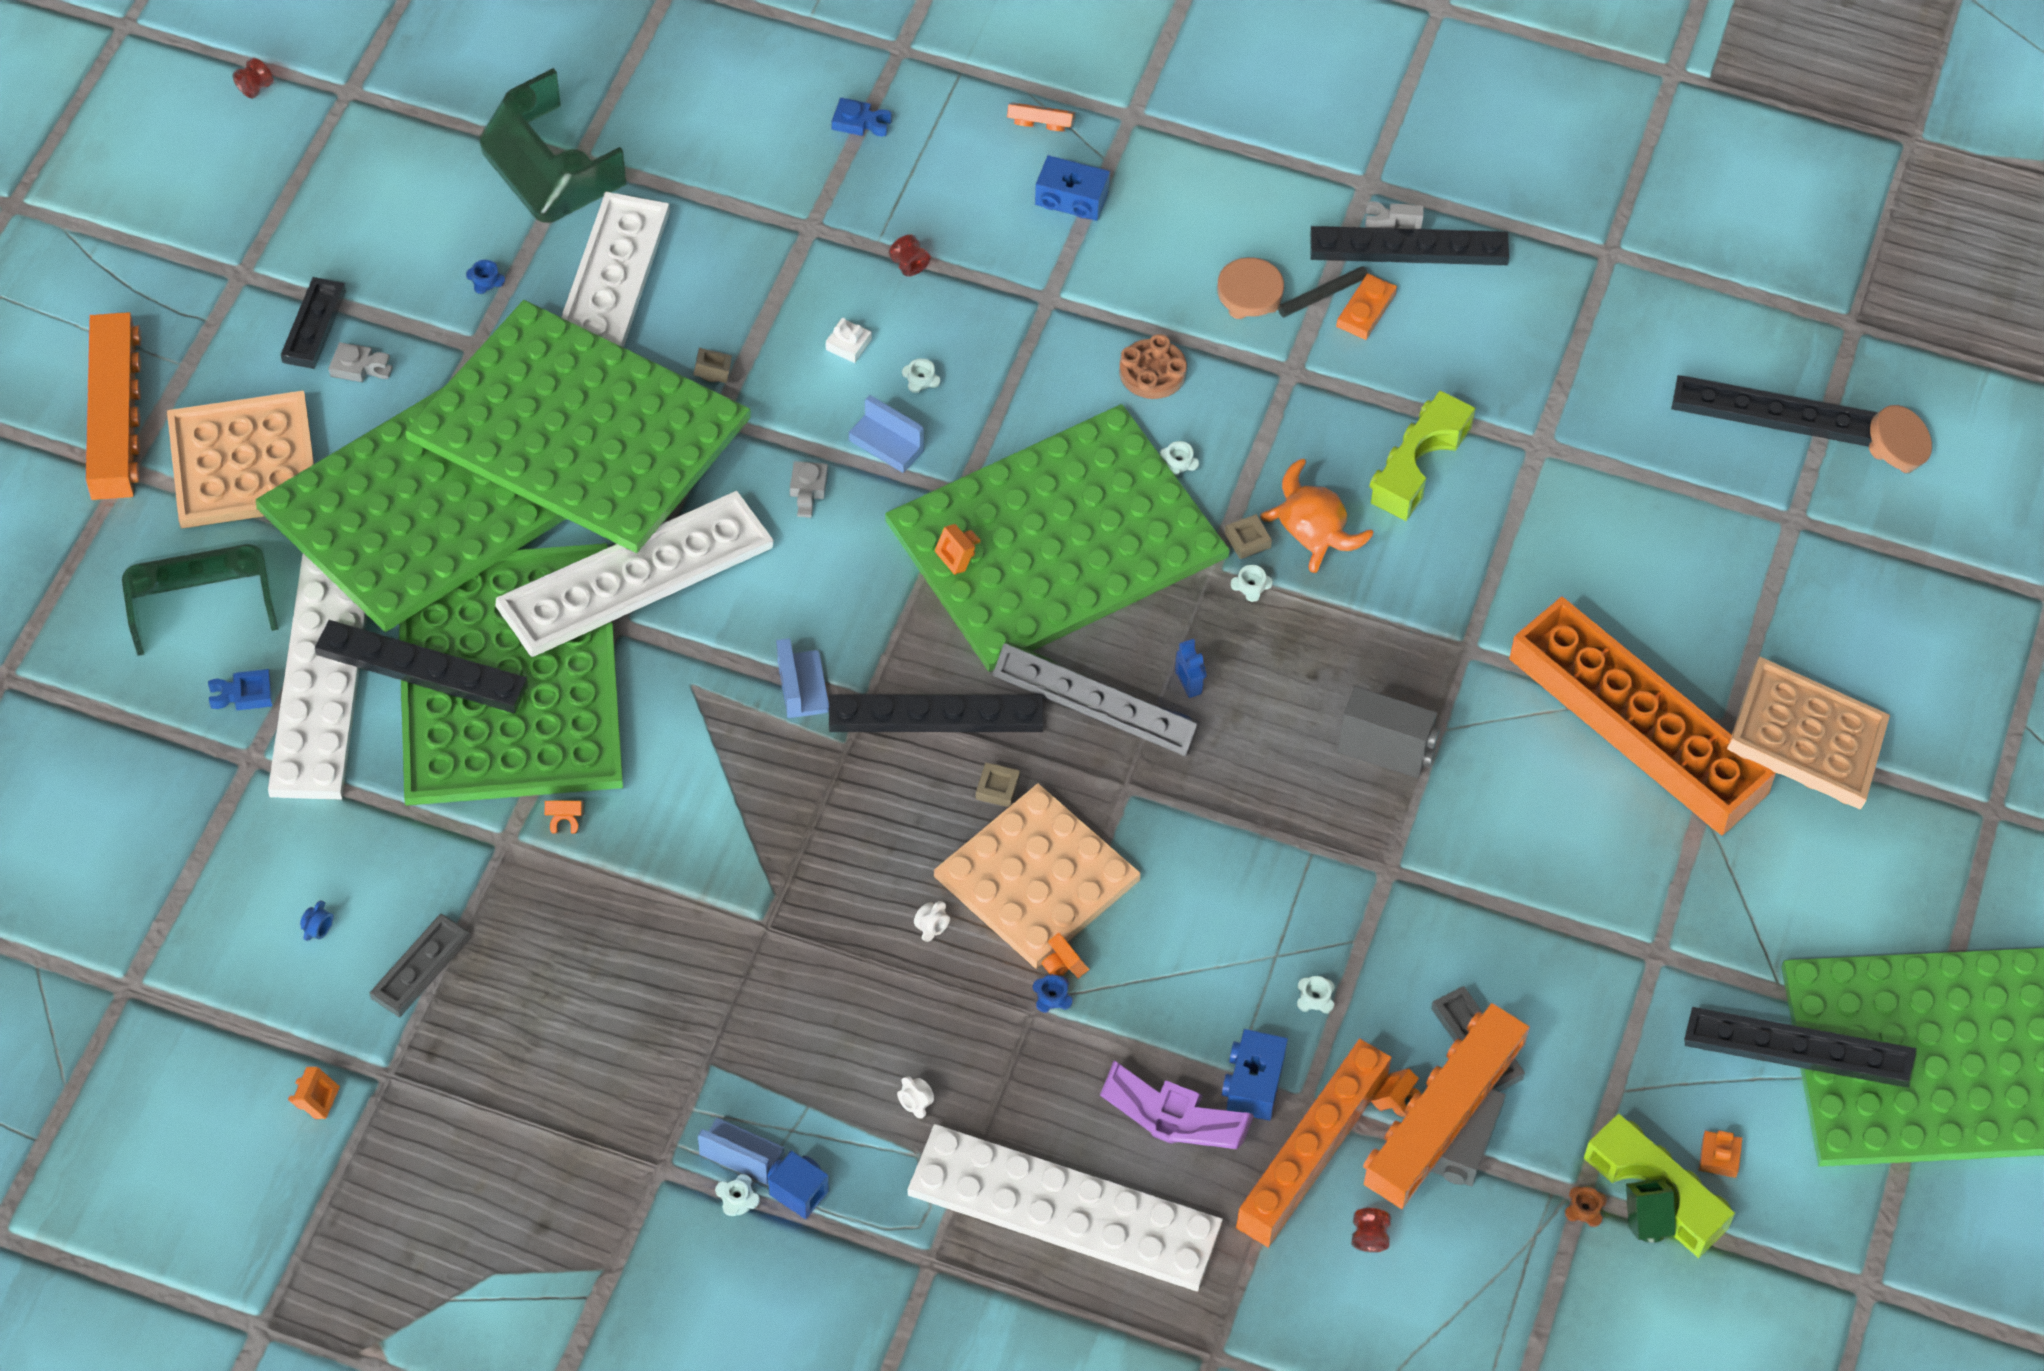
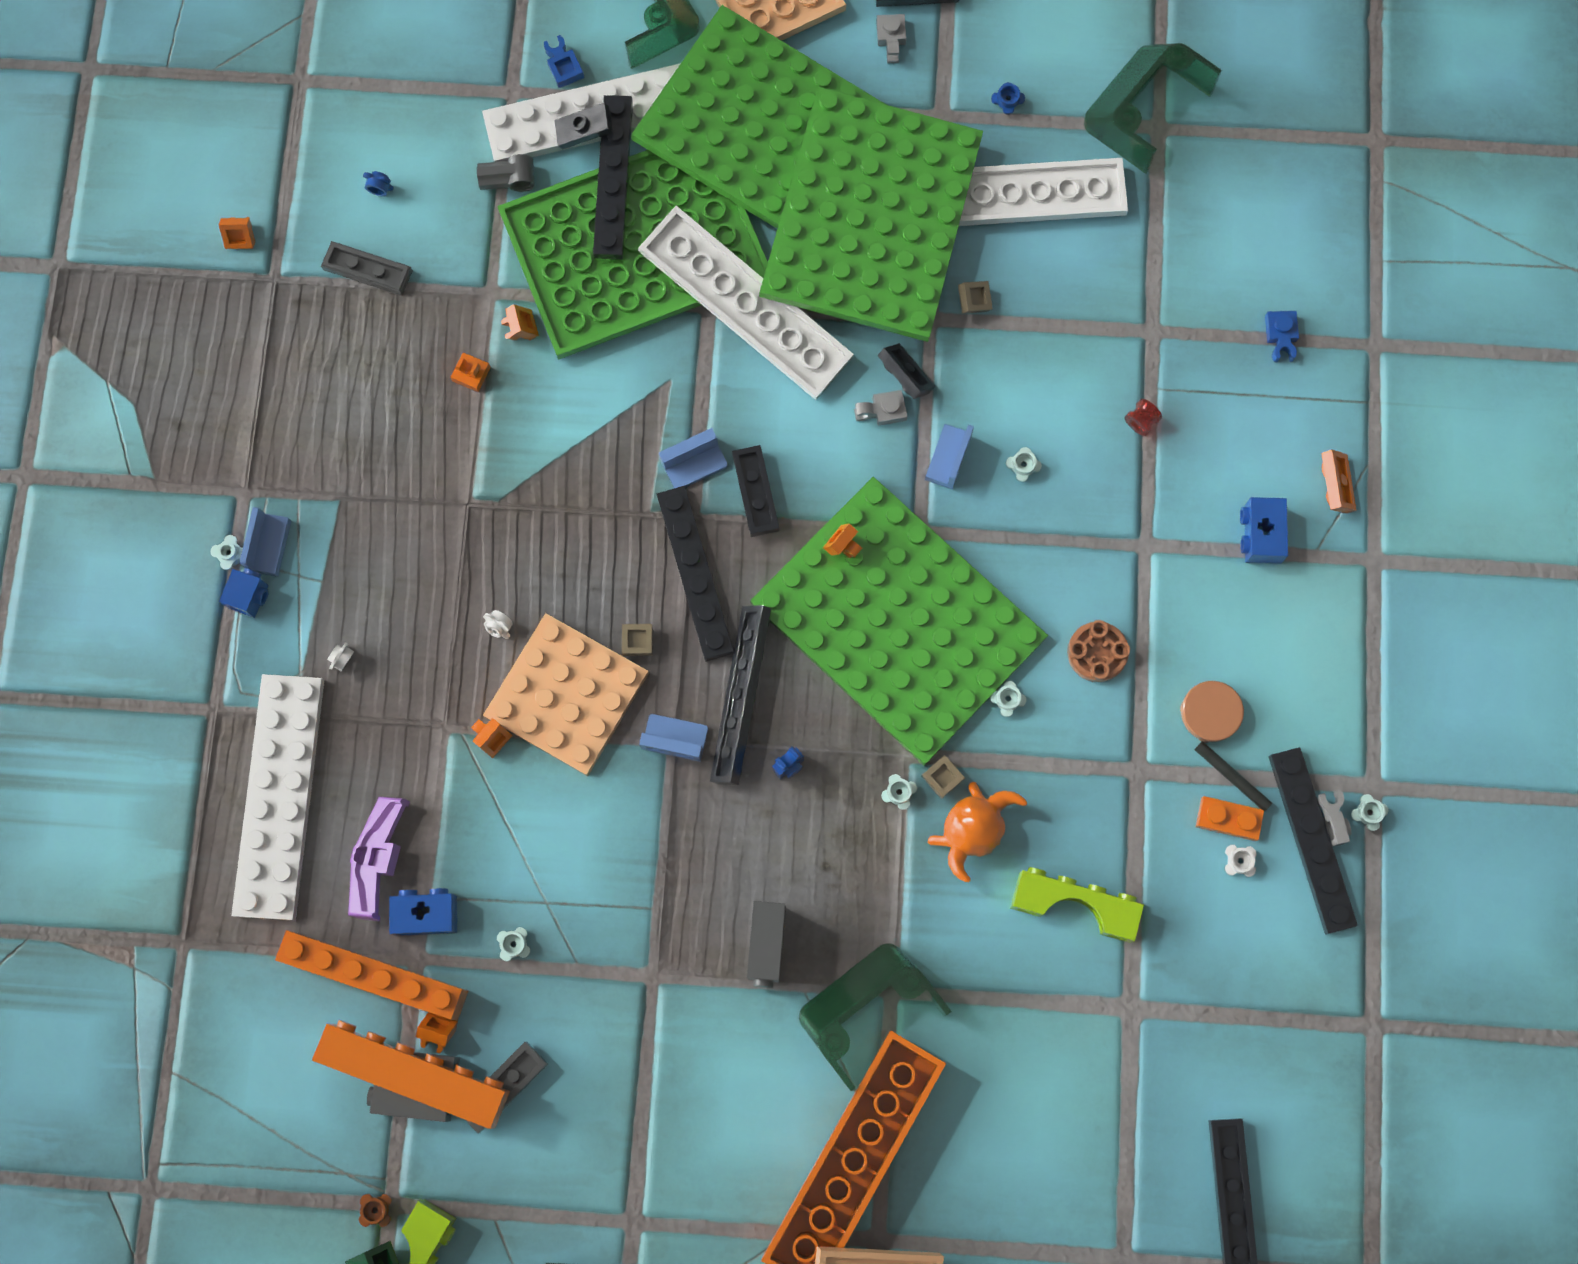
camera: 80 degrees right, 20 degrees up
(347, 674) = (583, 126): none -> plate
(366, 774) = (513, 174): none -> dark grey piece
(602, 882) = (470, 372): none -> orange tile
(760, 455) = (906, 371): none -> black plate
(848, 340) = (1042, 396): white tile -> none
(861, 627) = (755, 491): none -> black plate
(1055, 984) = (452, 732): blue plate -> none
(1124, 778) = (674, 737): none -> medium blue panel
(1371, 1230) = (305, 1039): clear red wheel -> none
(1395, 189) = (1368, 803): none -> light aqua plate
(1415, 301) = (1247, 854): none -> white plate
(1466, 681) = (852, 991): none -> clear green windscreen

